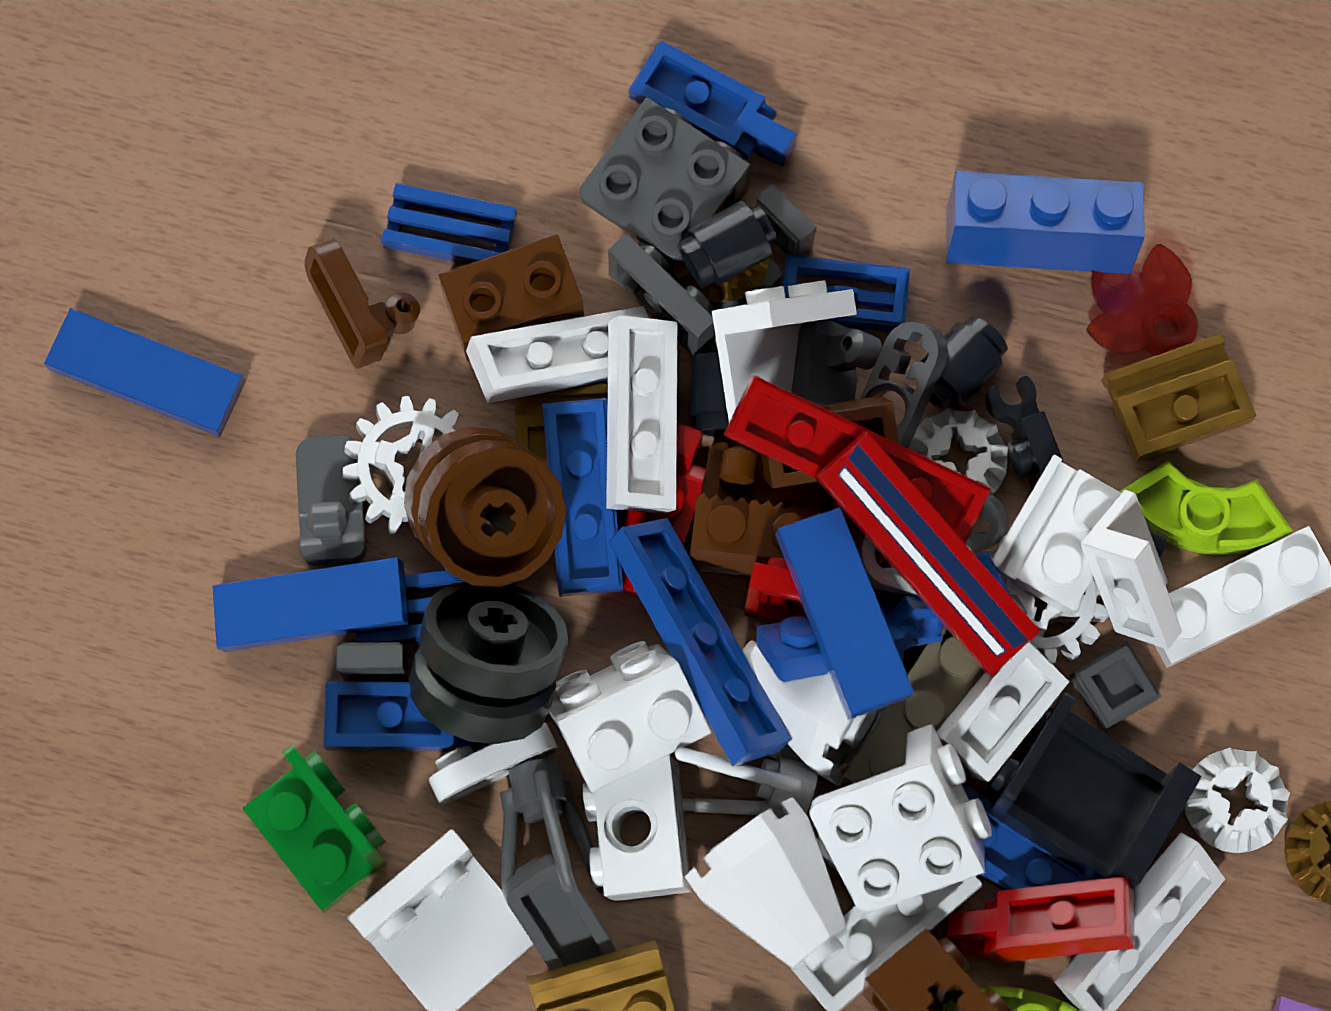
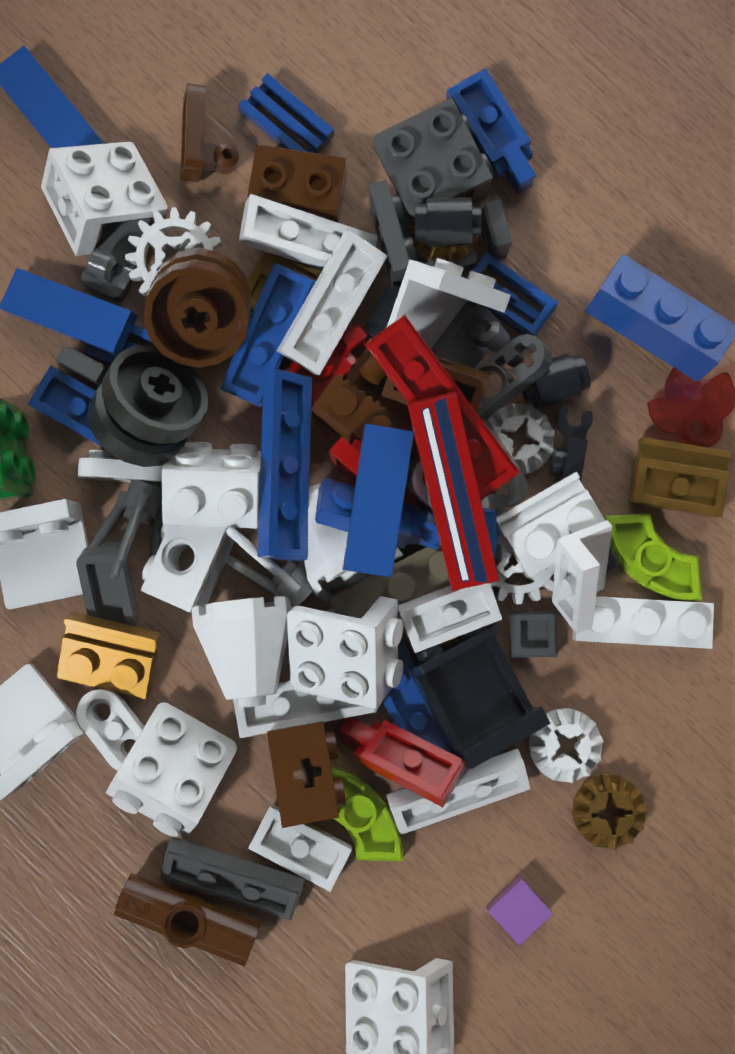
camera: 30 degrees right, 10 degrees up
(264, 434) = (98, 187): none -> white bracket

